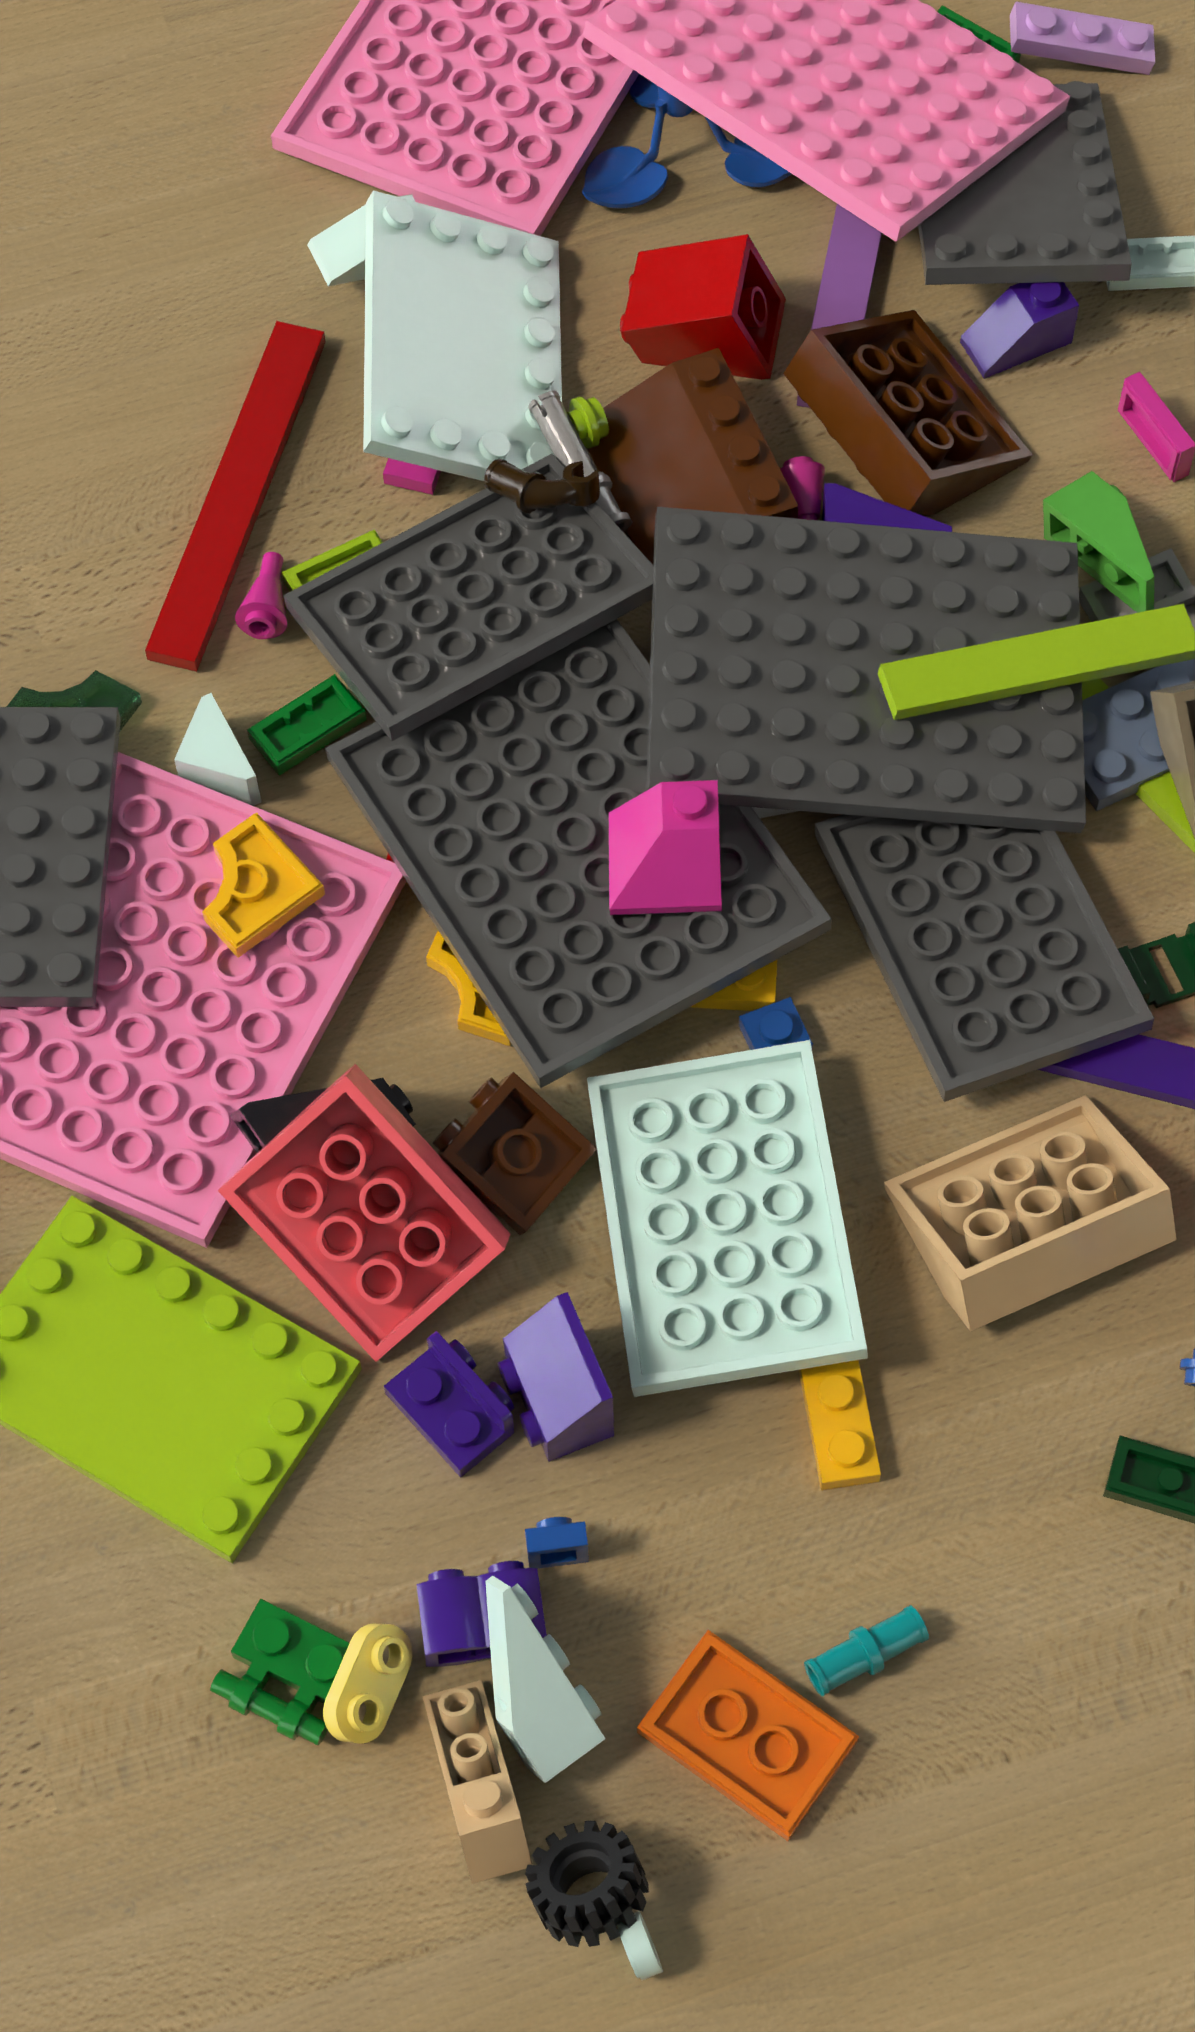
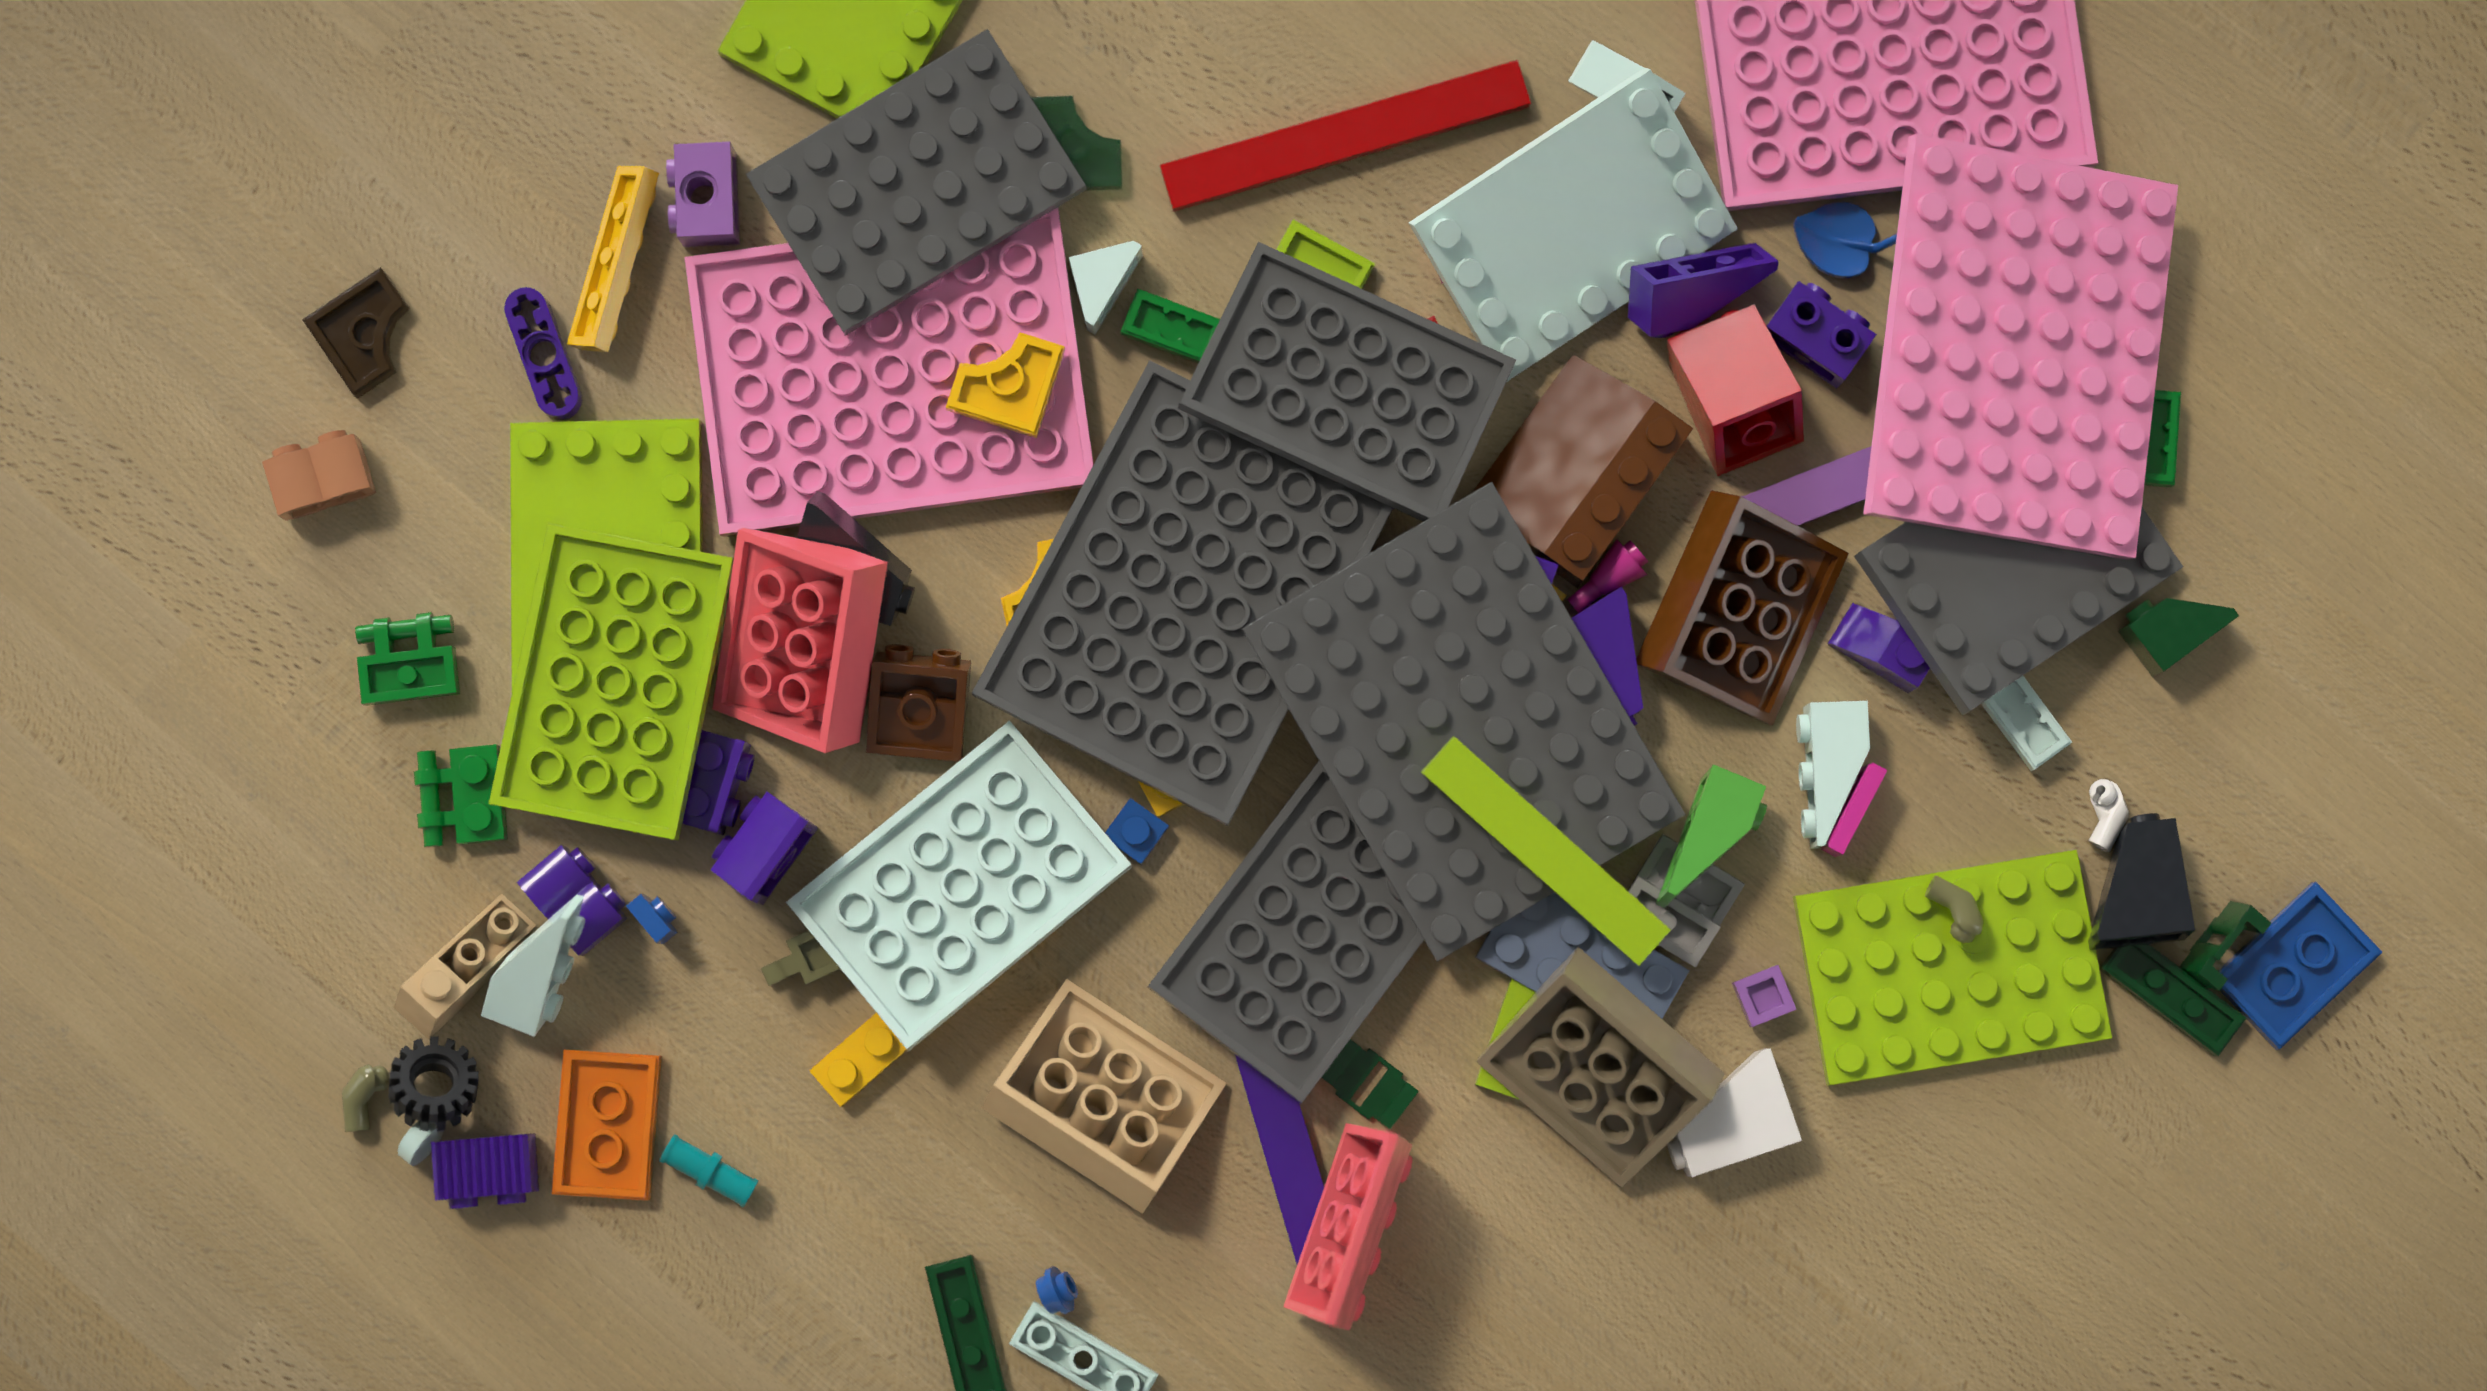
camera: 55 degrees right, 20 degrees up
(120, 1646) = (411, 673): none -> green plate
(263, 608) = (1256, 225): dark pink cone -> none
(282, 1428) = (612, 681): none -> lime plate
(367, 1680) = (480, 854): light yellow plate -> none
(535, 492) = (1459, 376): dark brown piece -> none
(540, 1988) = (358, 1092): none -> olive arm
(569, 449) = (1522, 383): light grey pin -> none
(587, 296) = (1691, 288): none -> dark purple slope
(588, 420) = (1567, 365): lime plate -> none
(666, 850) = (1202, 673): dark pink slope -> none
(698, 216) = (1820, 333): none -> dark purple brick
(701, 1413) = (806, 957): none -> olive plate
(715, 1889) = (485, 1168): none -> dark purple brick
(1082, 38) = (2221, 527): lavender plate -> none
(1099, 418) = (1834, 751): none -> light aqua slope
(1150, 117) = (2171, 630): none -> dark green slope

